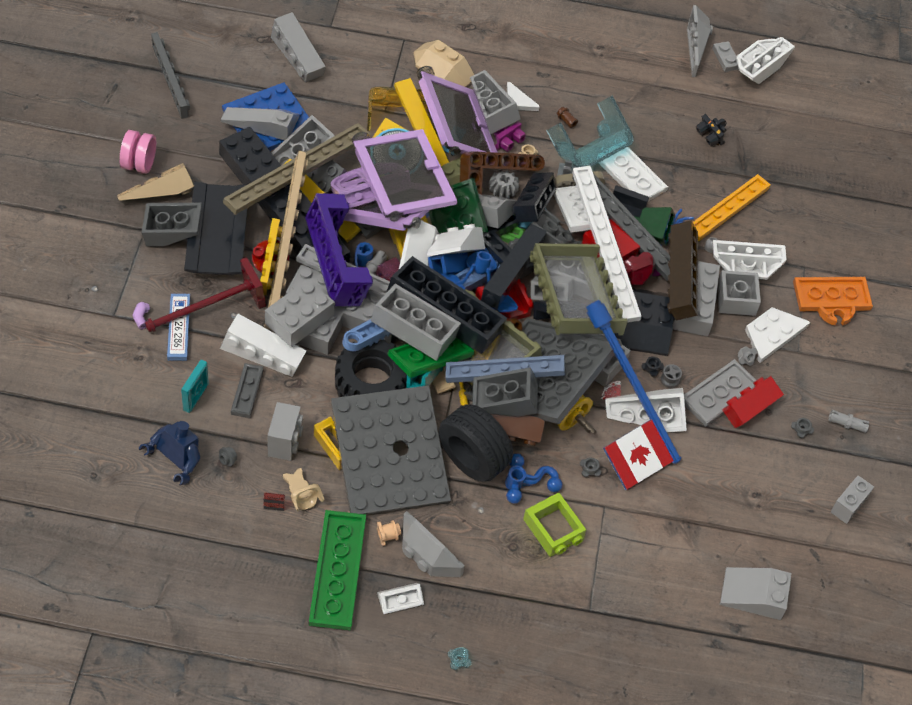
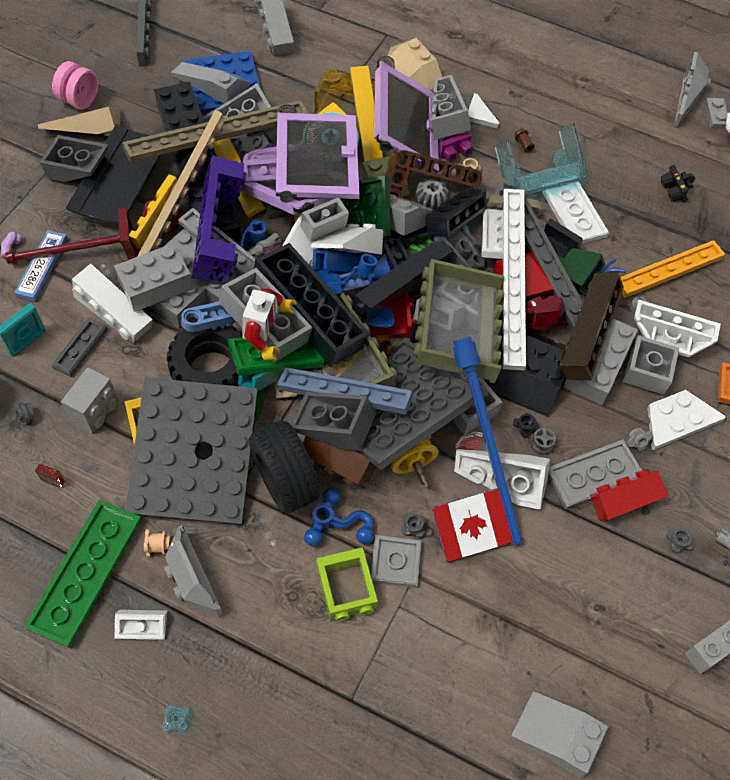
camera: 20 degrees right, 5 degrees up
(302, 494) = (85, 475): tan hair -> none
(422, 325) = (260, 316): none -> torso
(432, 229) = (324, 219): none -> light grey brick
(586, 498) = (396, 561): none -> light grey tile

